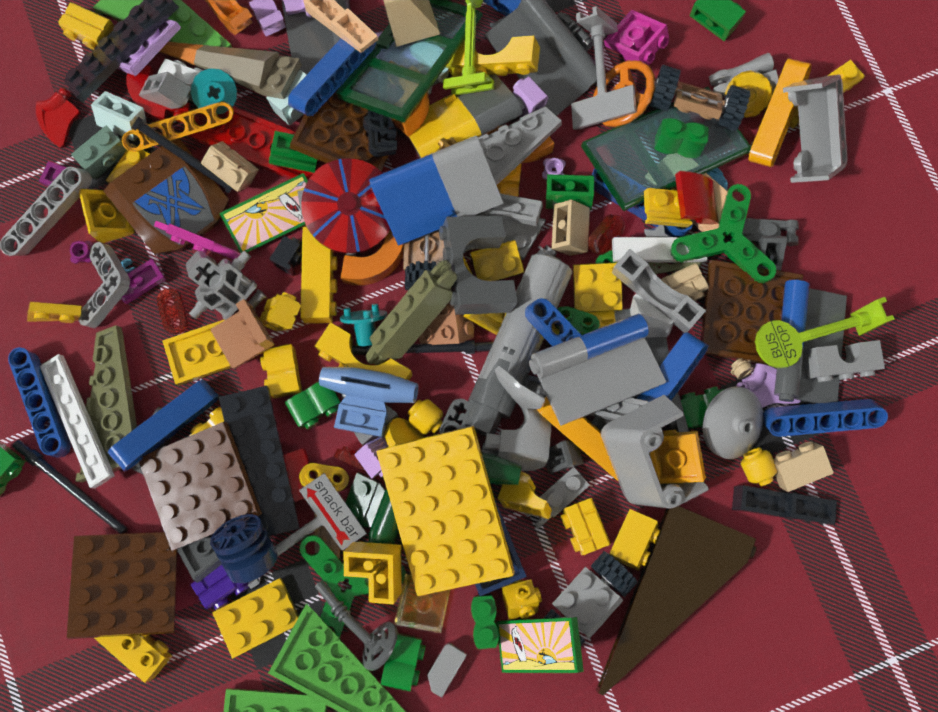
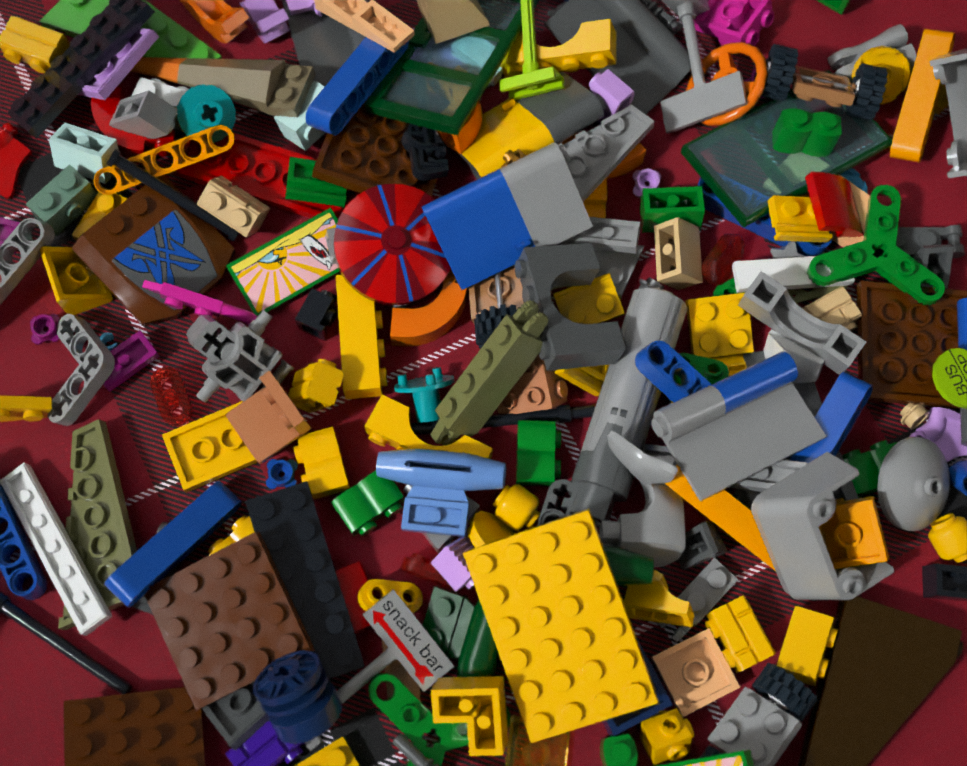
camera: 10 degrees left, 5 degrees down
(247, 371) = (275, 467): none -> blue plate
(445, 376) = (536, 453): none -> green brick
(549, 553) = (695, 672): none -> light nougat plate

